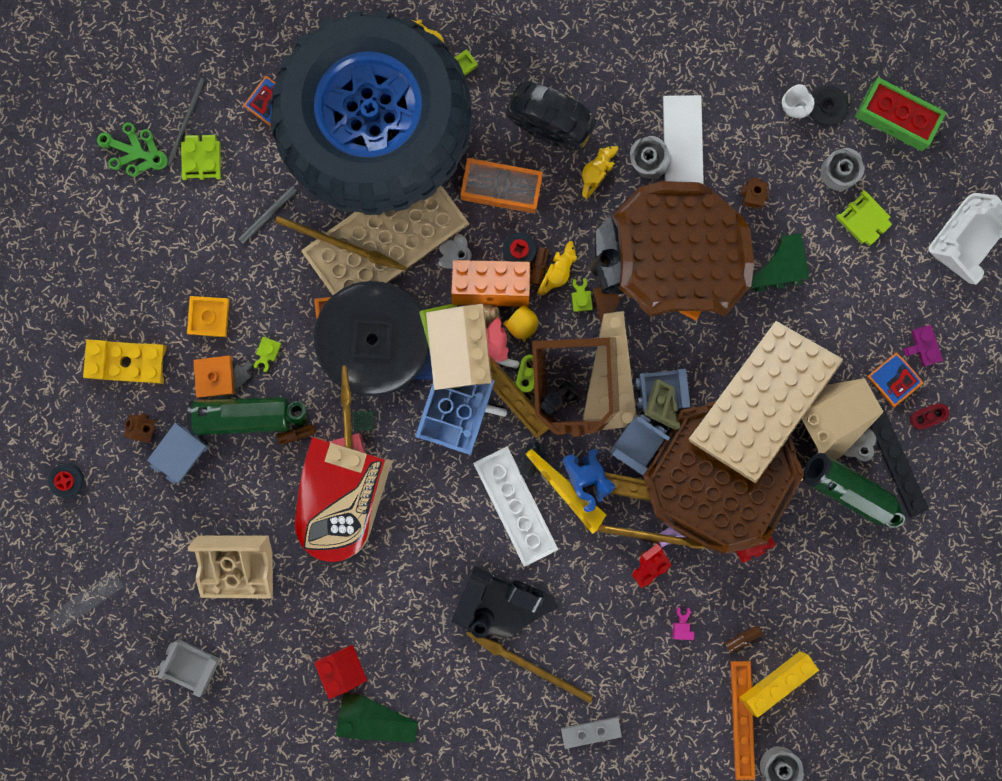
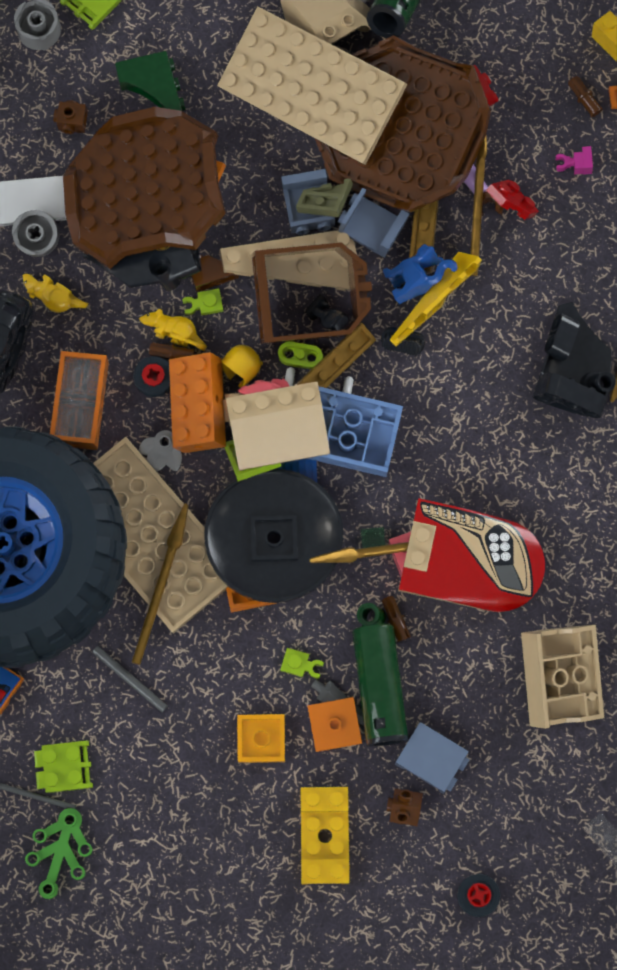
camera: 90 degrees left, 10 degrees down
(515, 506) = (457, 358): white tile -> none

